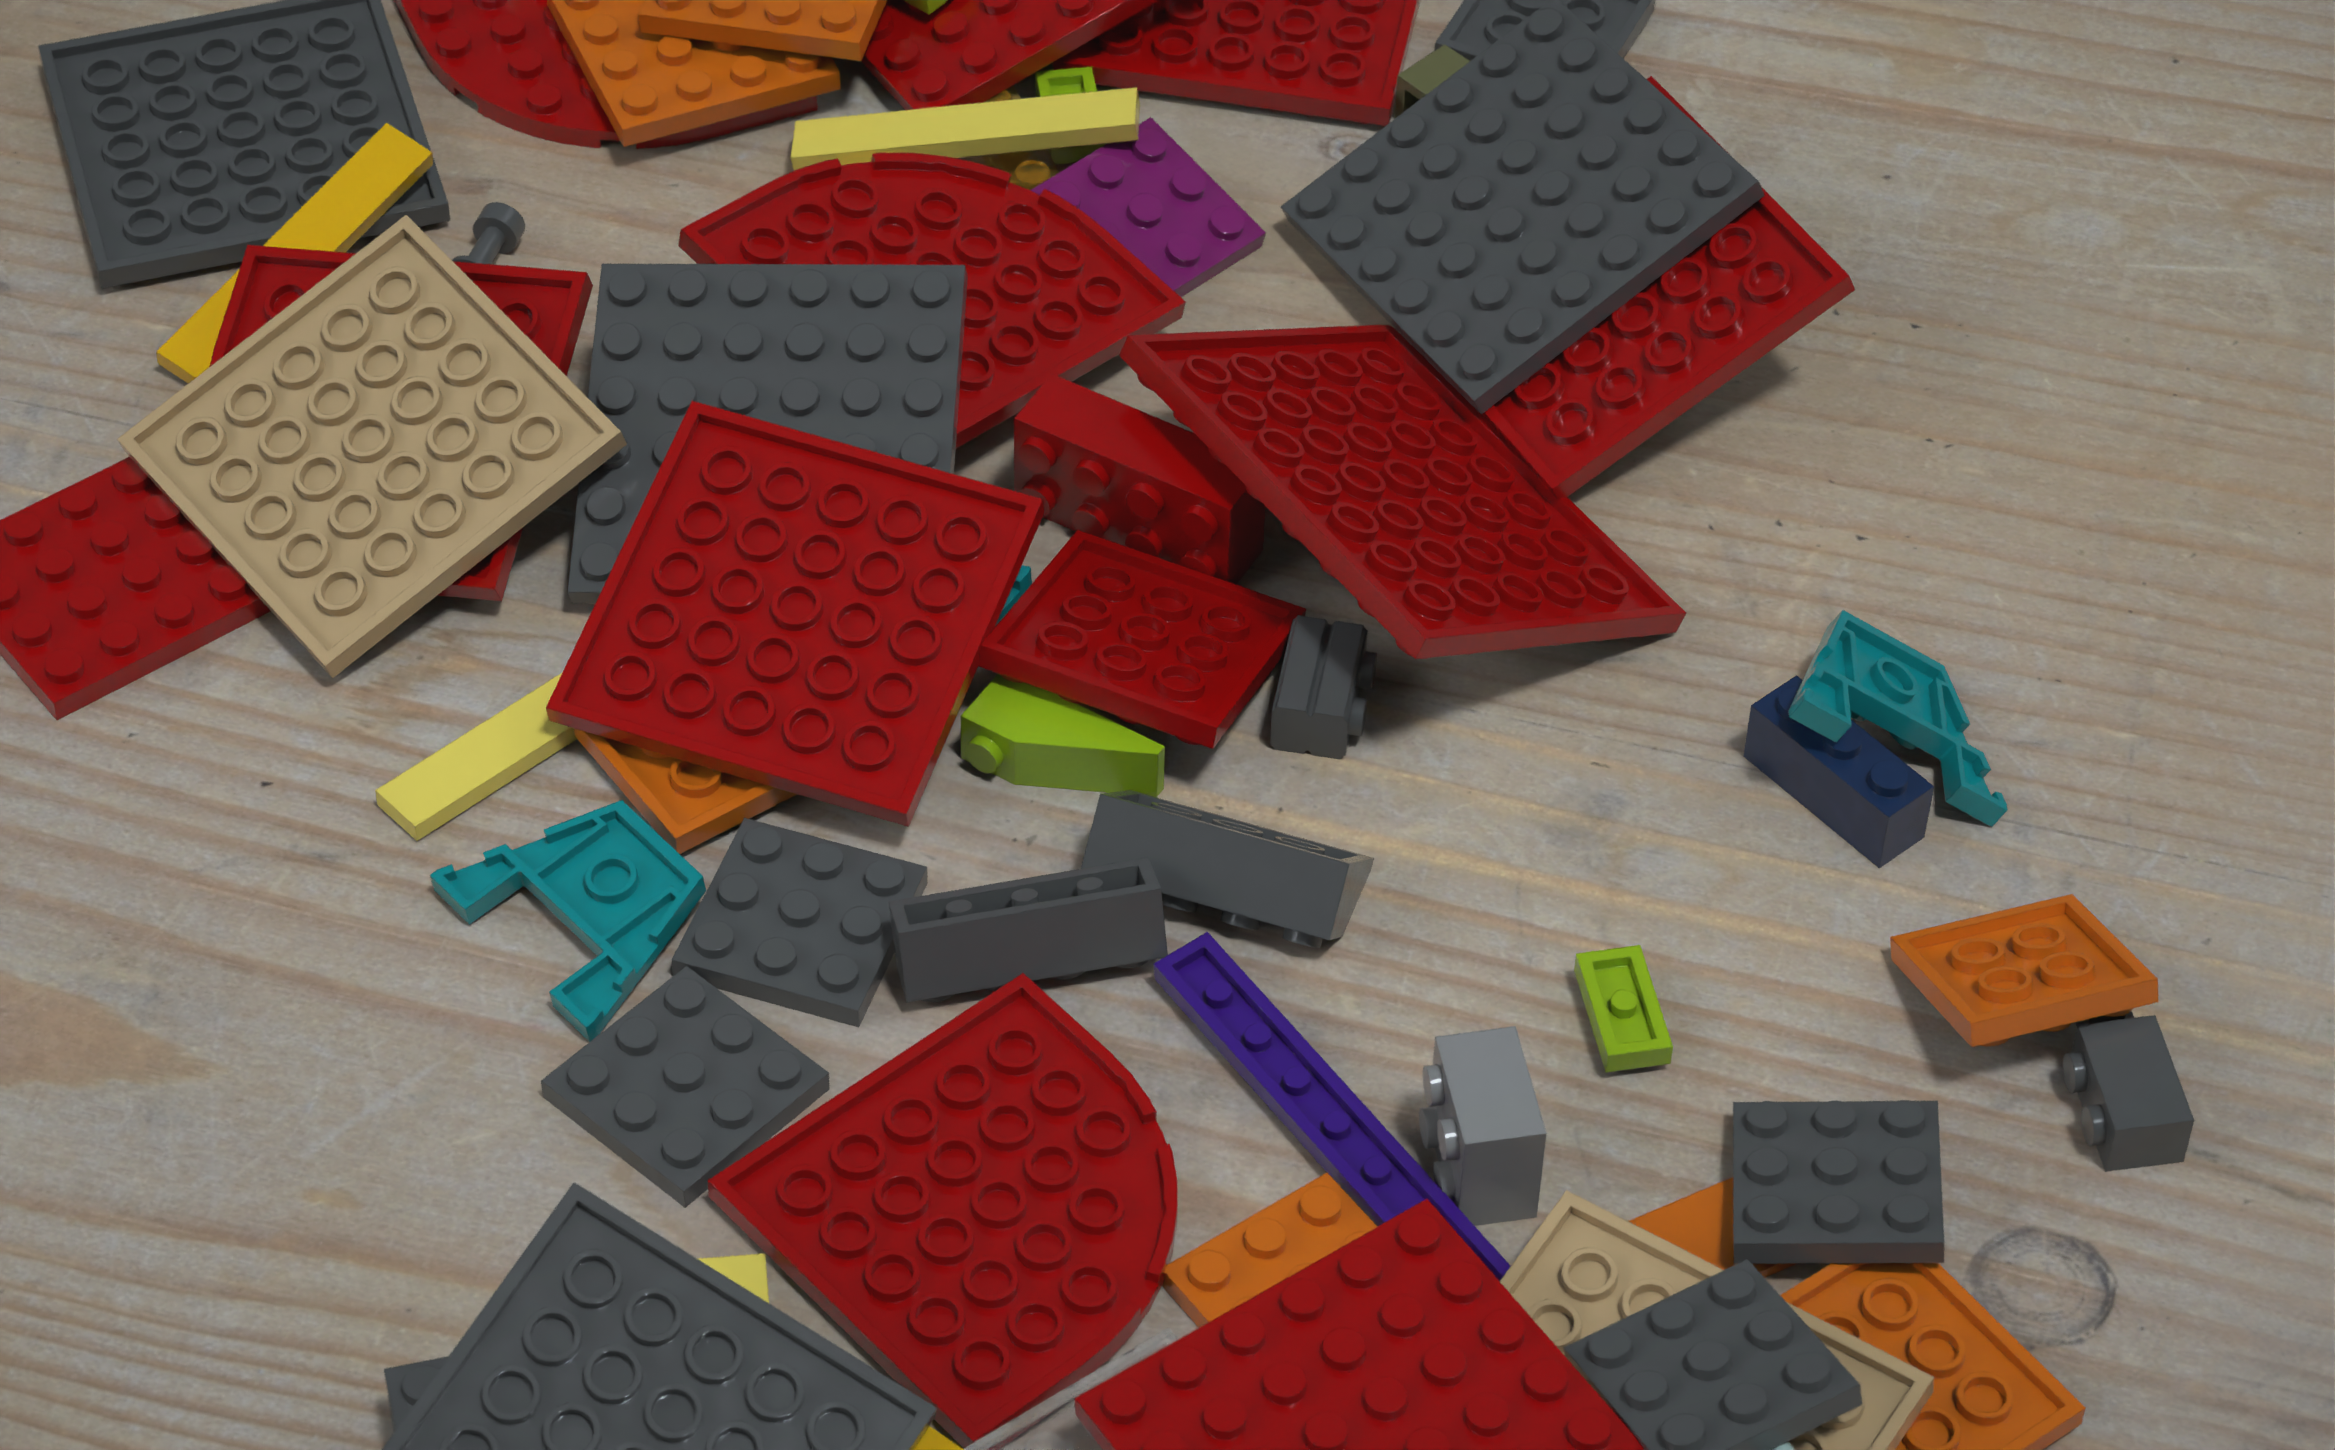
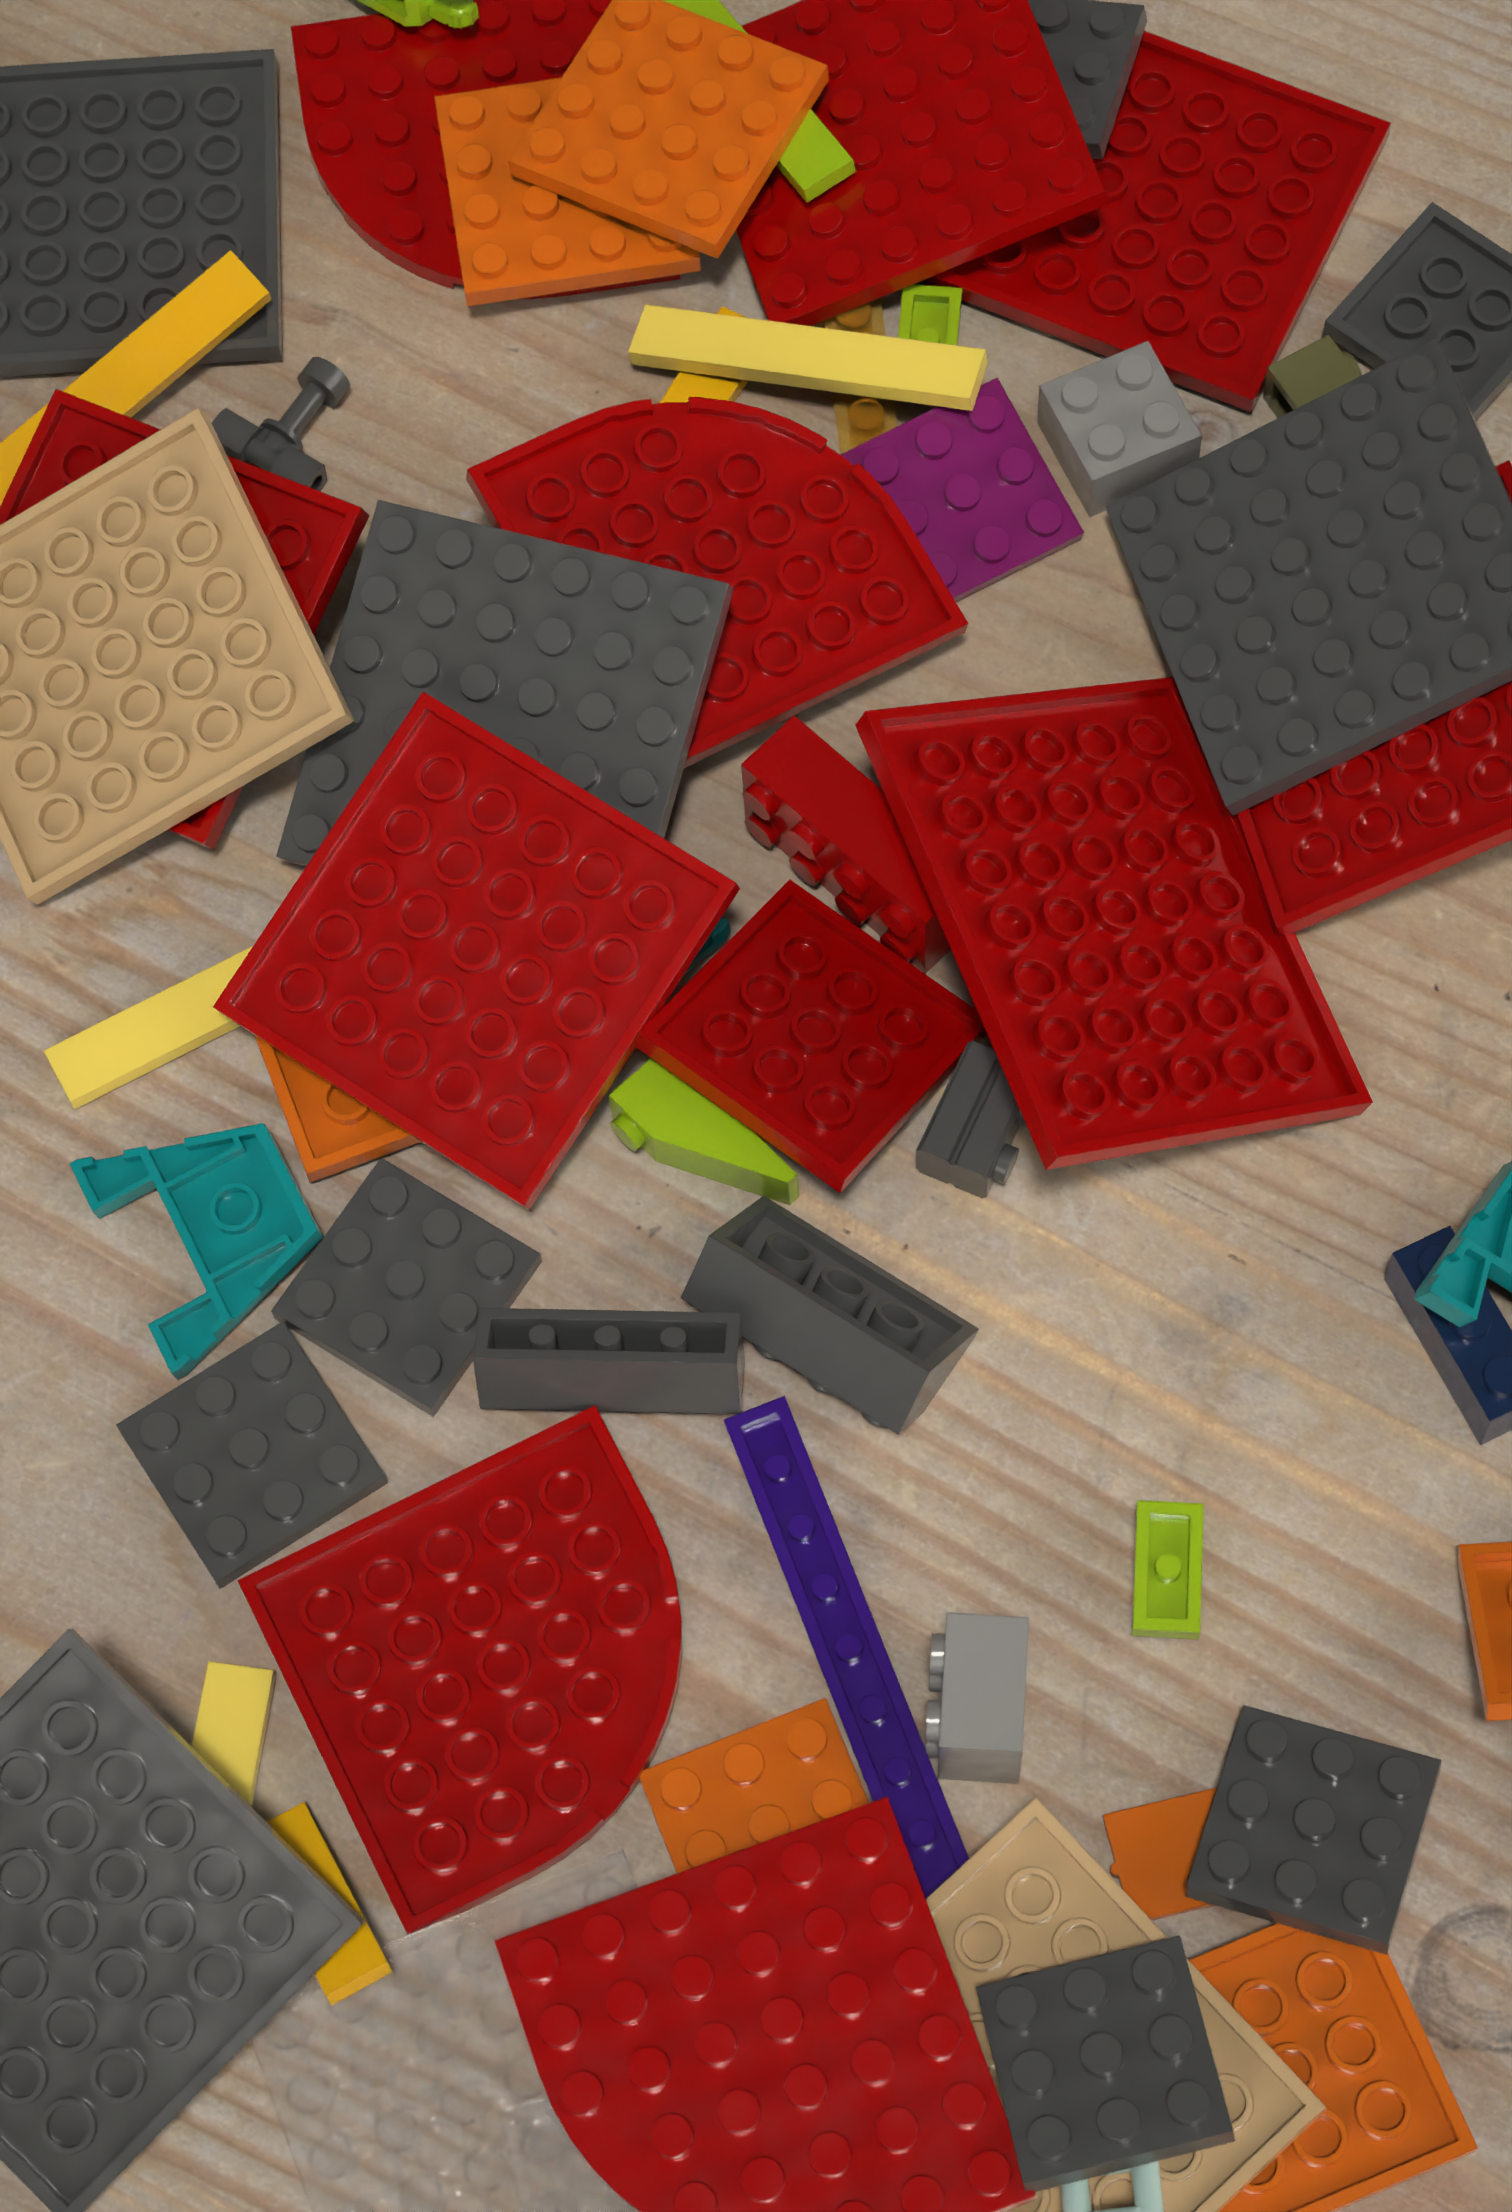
camera: 20 degrees right, 20 degrees up
(1269, 143) = (1117, 426): none -> light grey brick

